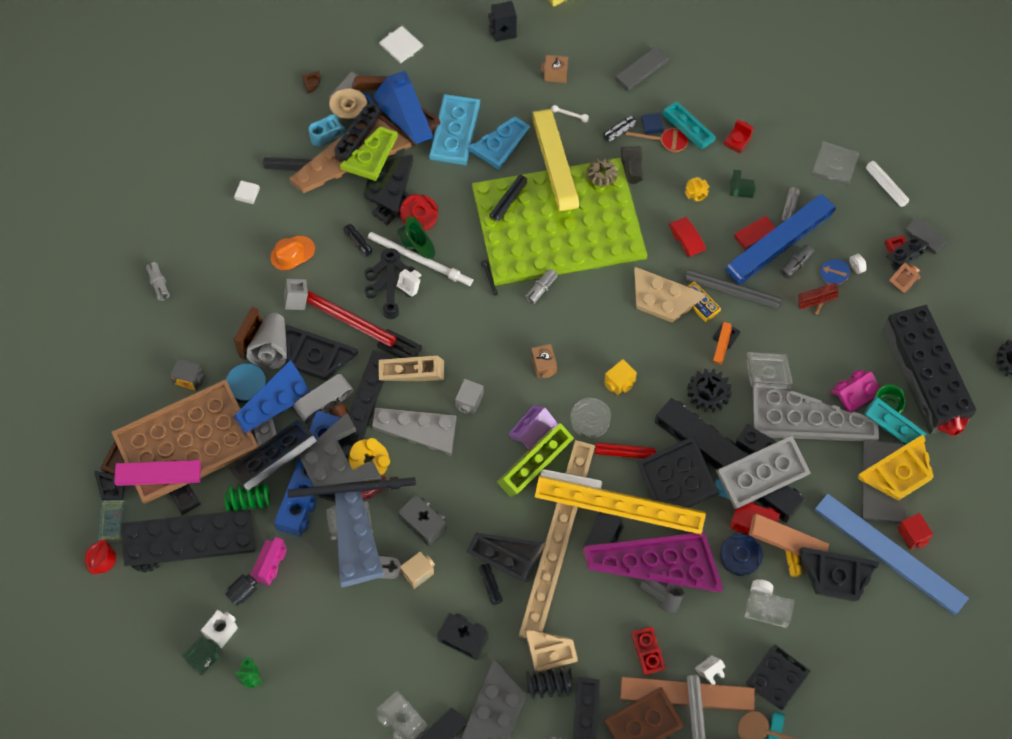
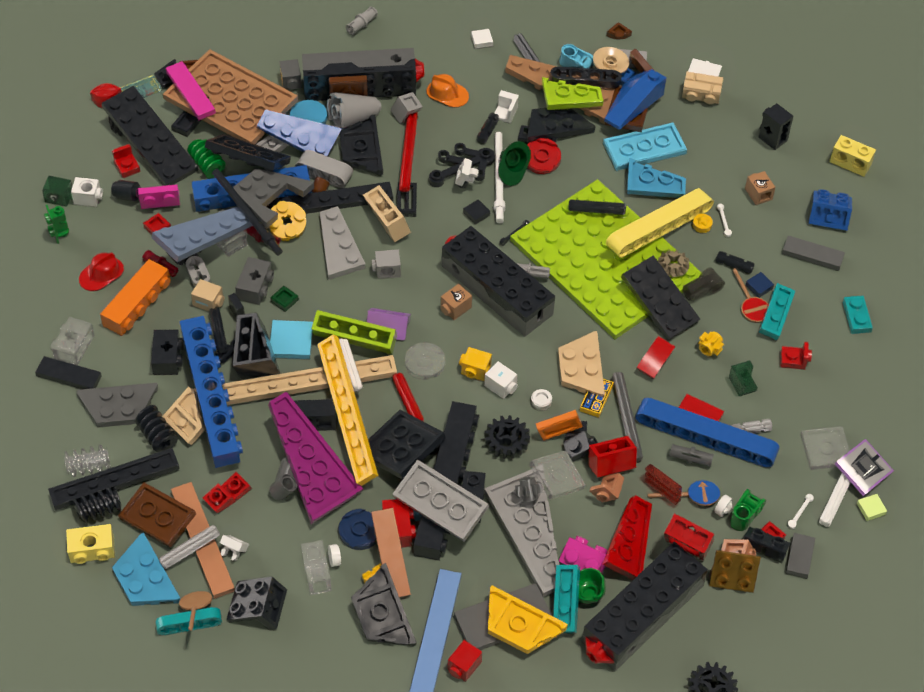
camera: 60 degrees right, 10 degrees down
(201, 575) = (125, 161): none -> red bracket
(246, 287) = (387, 71): none -> black piece
(298, 580) = (156, 223): none -> red tile
(326, 658) = (101, 272): none -> red piece
(345, 212) = (507, 106): none -> white panel
(351, 596) = (173, 270): none -> dark red axle
(381, 637) = (135, 297): none -> orange brick
(422, 52) = (702, 87): none -> tan brick
(445, 549) = (235, 305): none -> black tile
(448, 296) = (476, 211): none -> black tile
(454, 503) = (284, 298): none -> dark green tile
(463, 577) = (218, 330): none -> black axle
(505, 517) = (291, 339): none -> medium azure tile
(541, 316) = (497, 280): none -> black piece
(545, 623) = (198, 344): none -> blue brick
(565, 130) = (702, 223): none -> yellow tile
(609, 29) = (831, 209): none -> blue bracket
(631, 201) = (660, 298): none -> black plate
(648, 366) = (501, 380): none -> white brick
(680, 345) = (541, 399): none -> white tile
(720, 72) = (857, 314): none -> teal plate
(747, 338) = (579, 445): none -> black bracket
(774, 319) = (612, 456): none -> red brick
(780, 398) = (528, 489): none -> dark grey gear
(800, 338) = (609, 488): none -> nougat bracket
(863, 350) = (629, 543): none -> red wing
(867, 247) = (747, 507): none -> green piece
(871, 147) = (864, 467): none -> slope
(887, 302) = (692, 541): none -> red window
(893, 226) = (792, 523): none -> white hinge
(906, 163) = (871, 507): none -> yellowish green tile
(927, 288) = (734, 571): none -> pearl gold hinge

